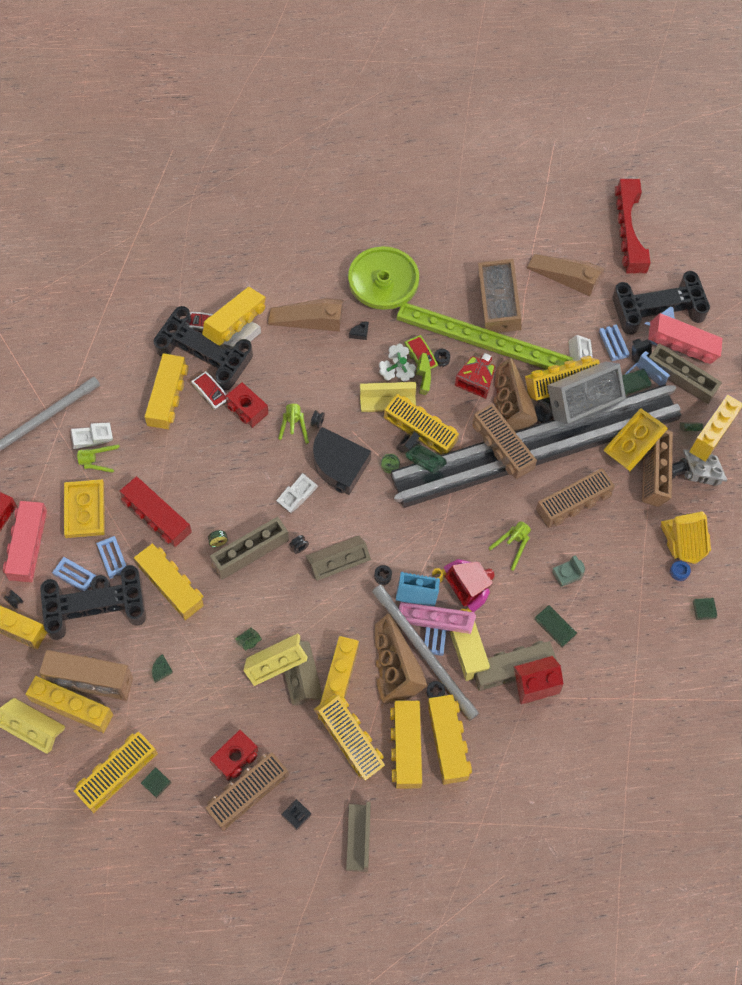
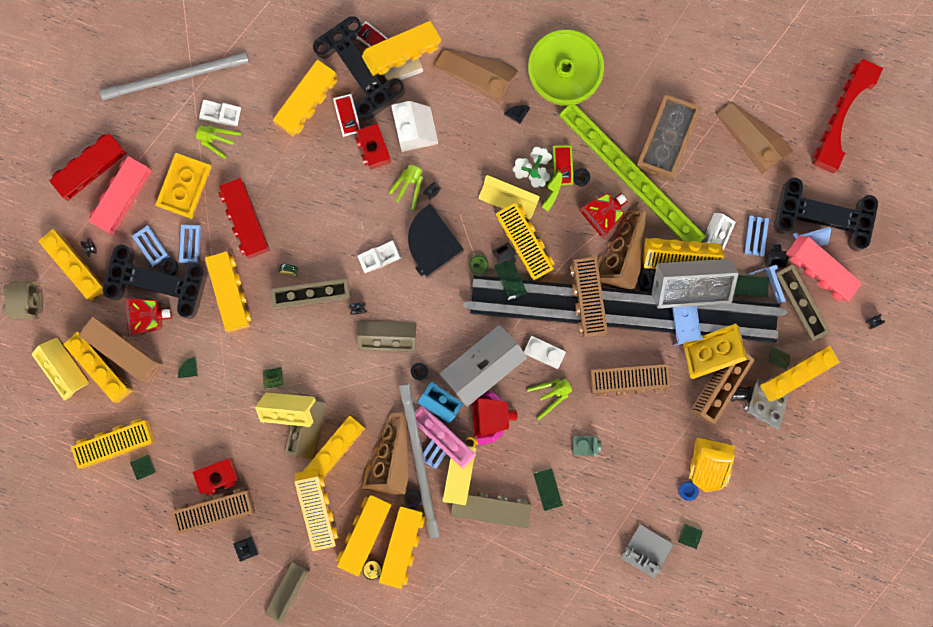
camera: 30 degrees right, 20 degrees up
(97, 636) = (145, 316): none -> red torso
(273, 373) = (414, 125): none -> white slope
(431, 775) = (372, 569): none -> light yellow tile
(440, 538) = (483, 365): none -> light grey brick
(487, 510) = (544, 352): none -> white plate
(538, 679) = (503, 533): red slope -> none
(598, 430) = (686, 324): none -> light blue piece
(675, 639) = (647, 551): none -> light grey hinge

